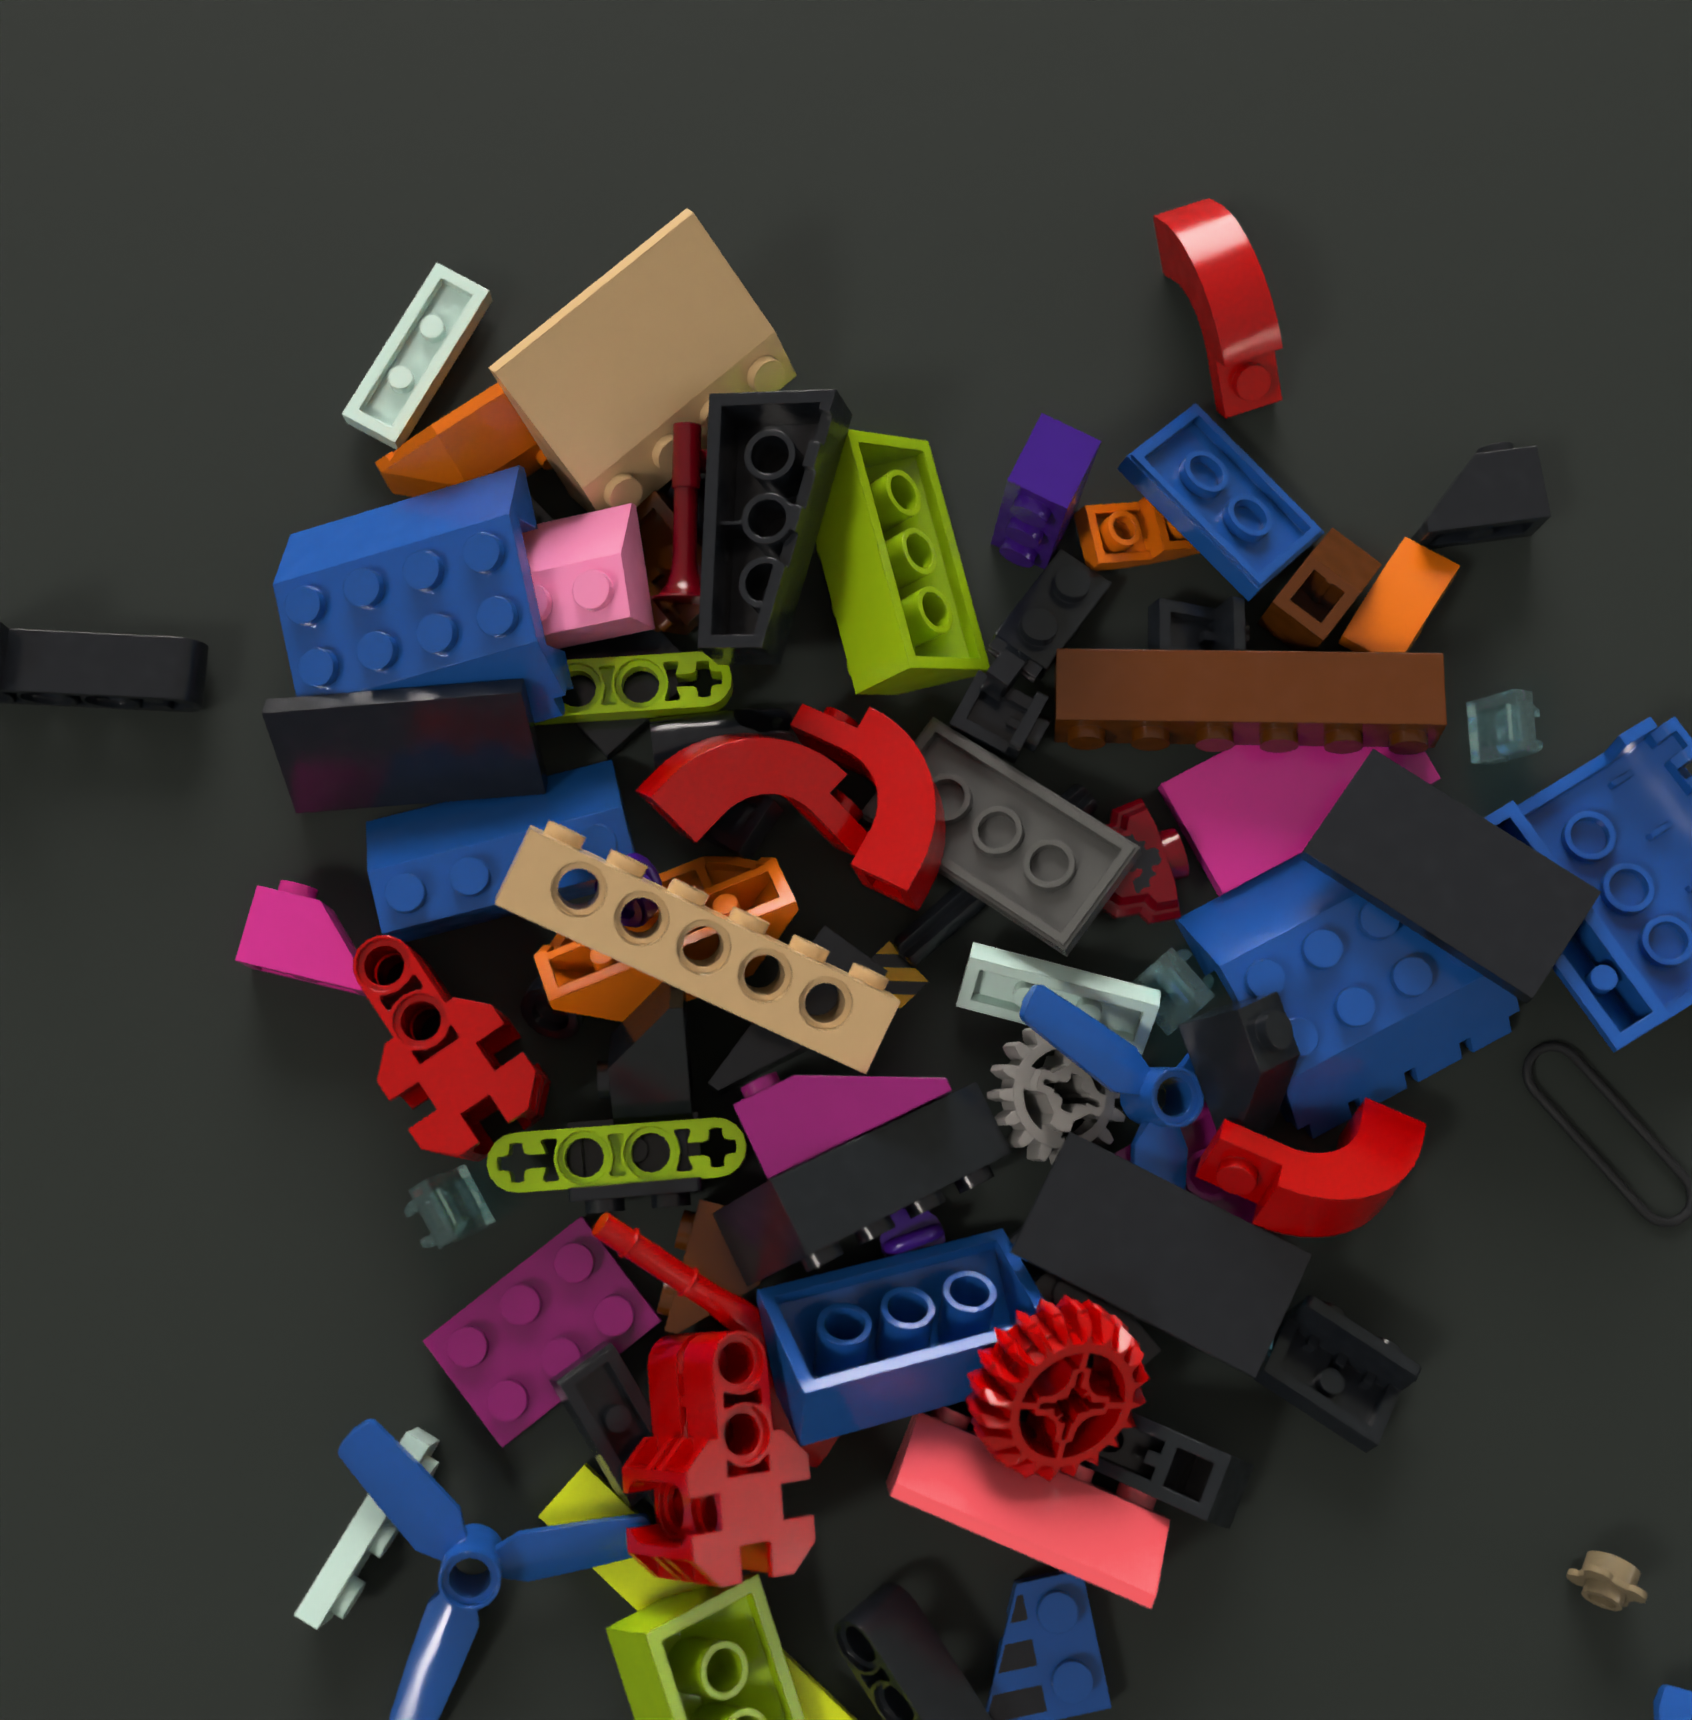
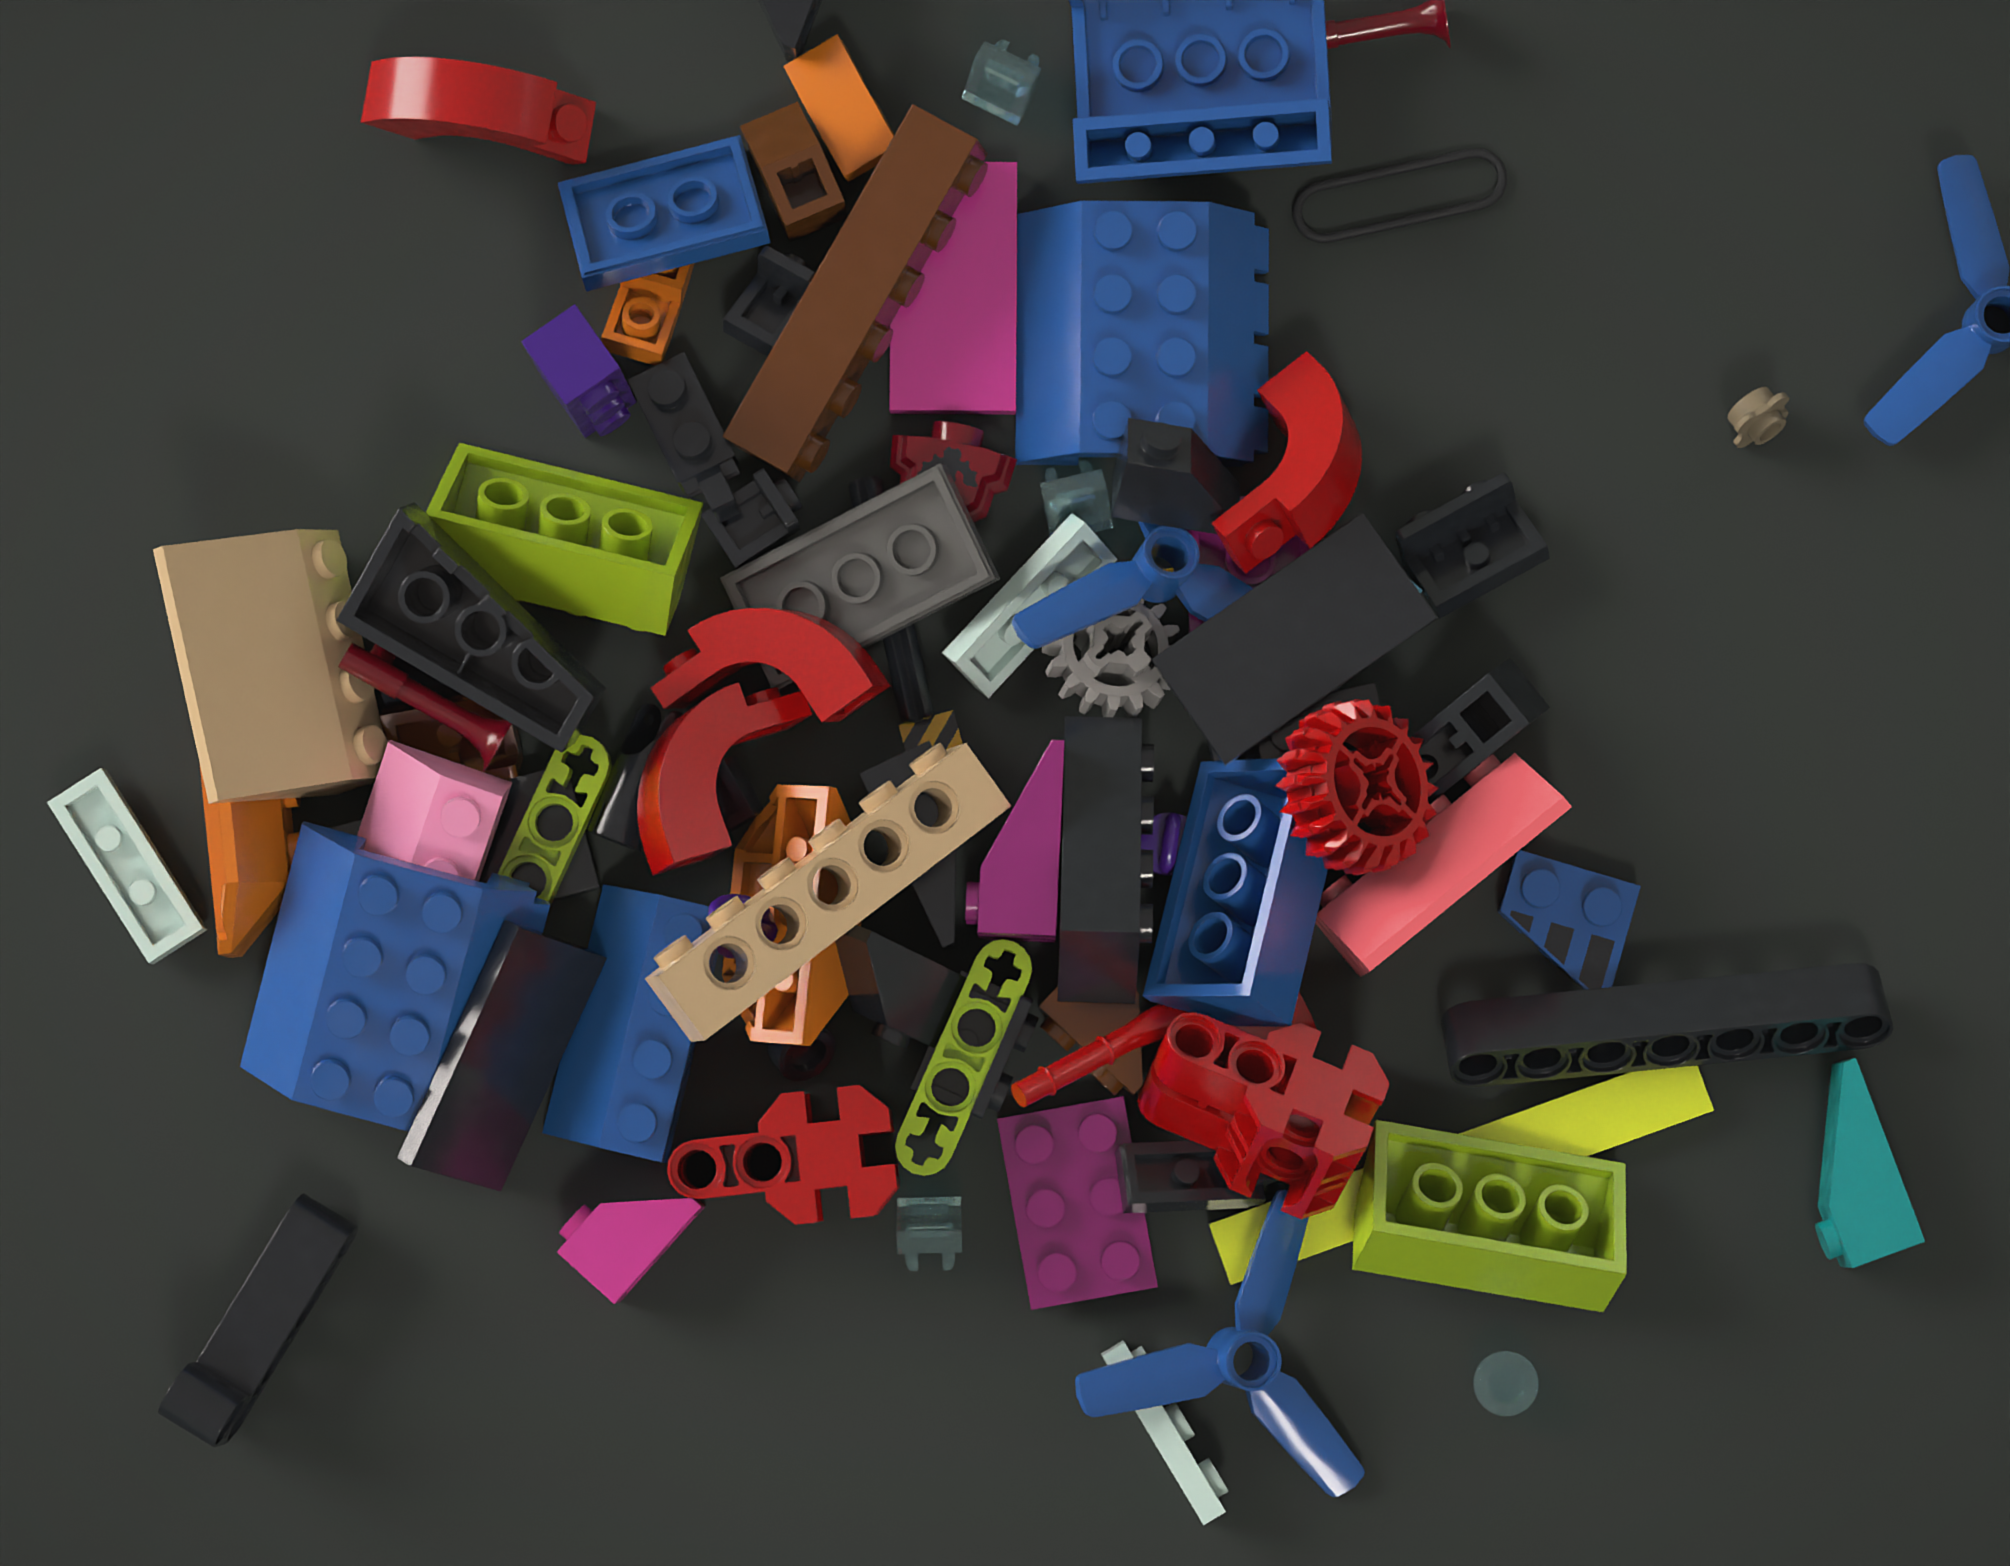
camera: 55 degrees left, 5 degrees up
(1450, 875) = (1107, 213): black tile -> none

